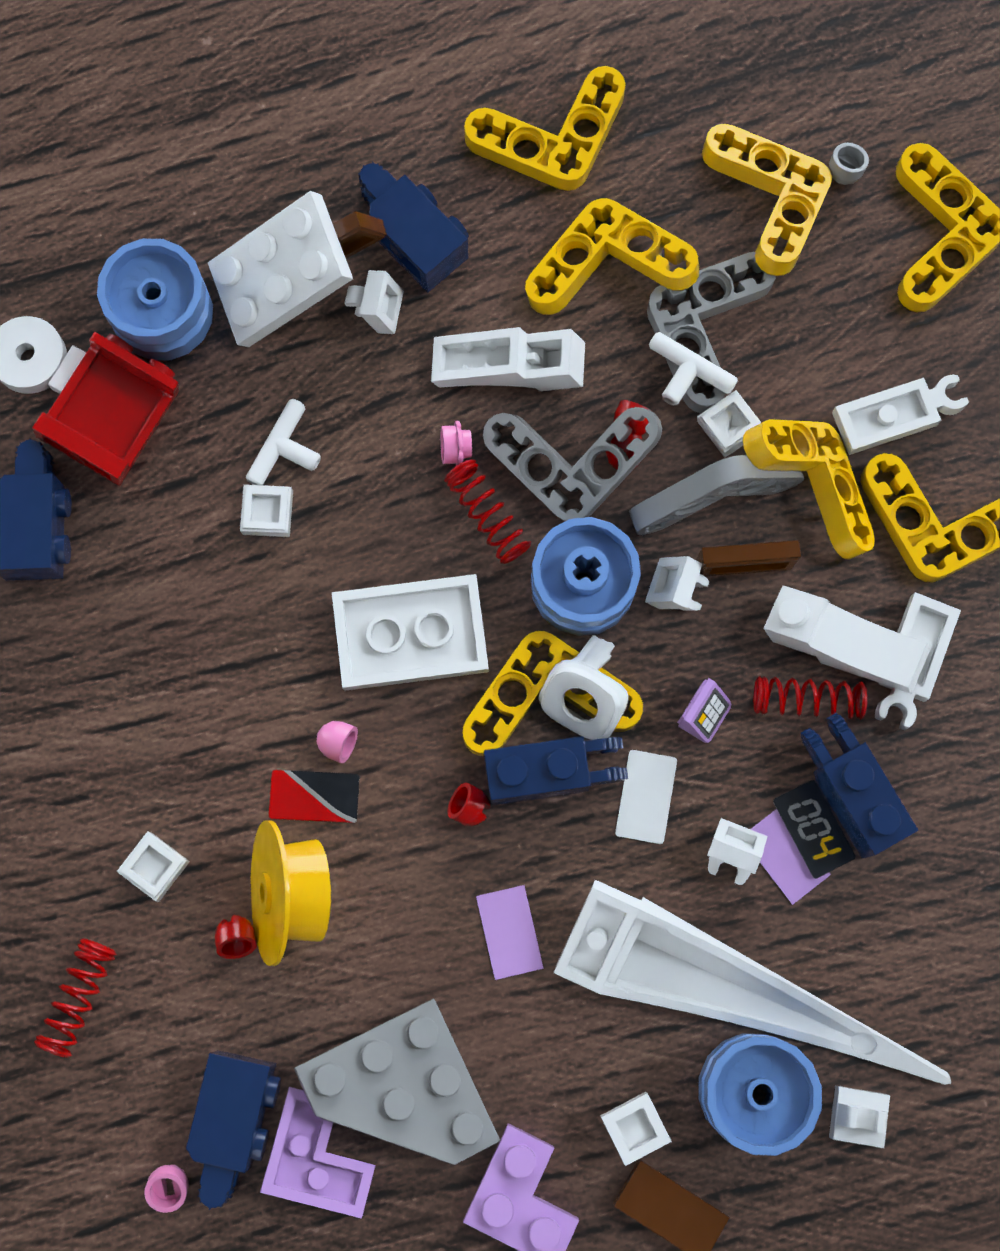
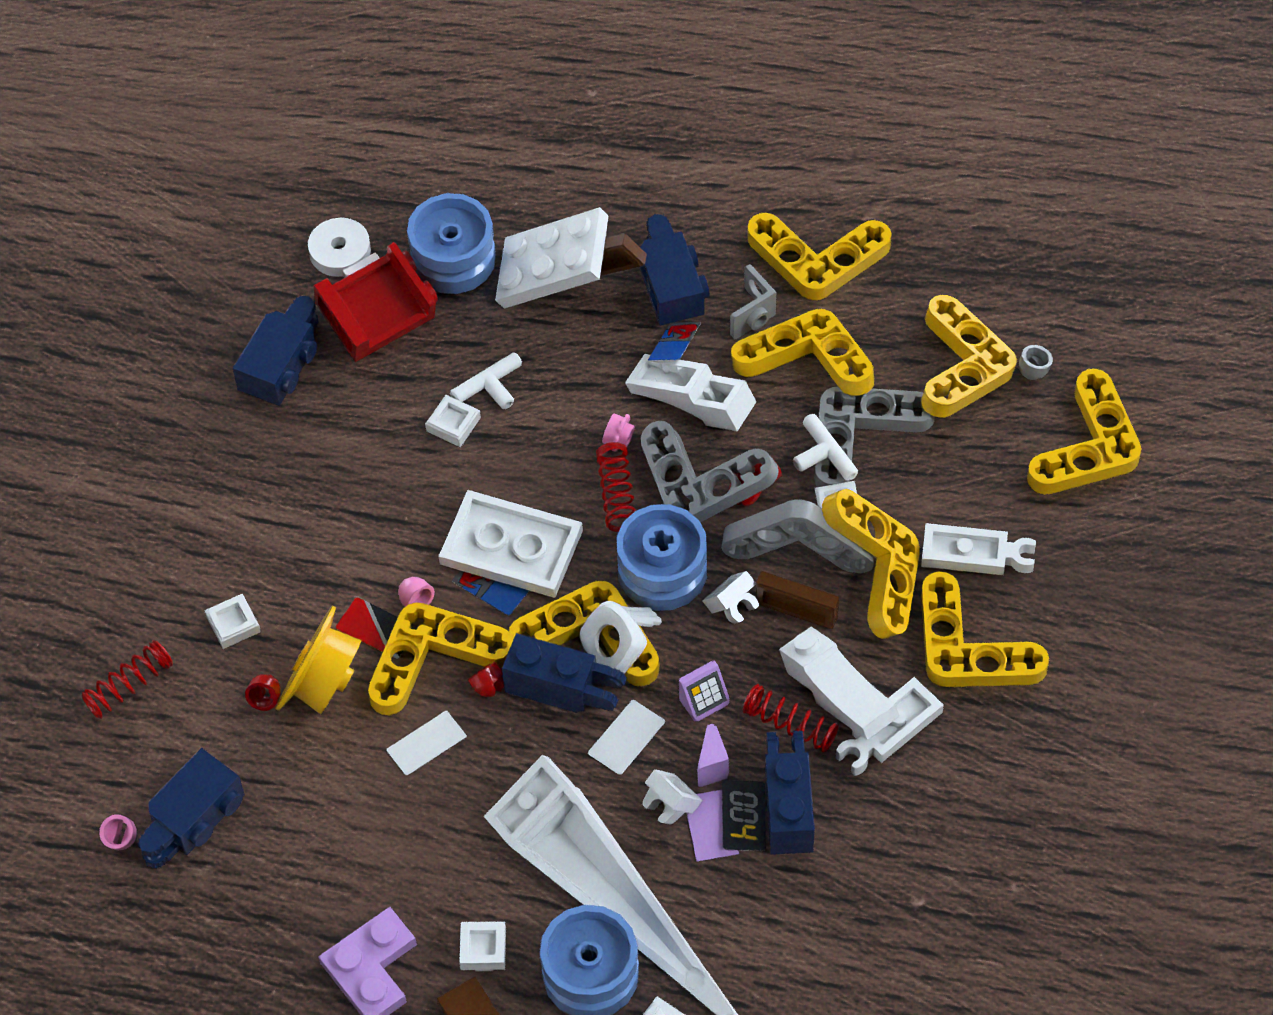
camera: 30 degrees right, 20 degrees down
(303, 1169) = (225, 863): lavender plate -> none
(372, 799) = (421, 641): none -> yellow beam
(377, 301) = (616, 312): white tile -> none
(402, 1087) = (327, 844): light grey plate -> none
(421, 695) = (497, 594): none -> blue sticker
(439, 906) = (426, 743): none -> white sticker
(459, 308) = (674, 341): none -> sticker
(509, 932) = (468, 783): lavender sticker -> none
(532, 234) = (758, 311): none -> light grey bracket
(756, 784) = (713, 760): none -> lavender slope

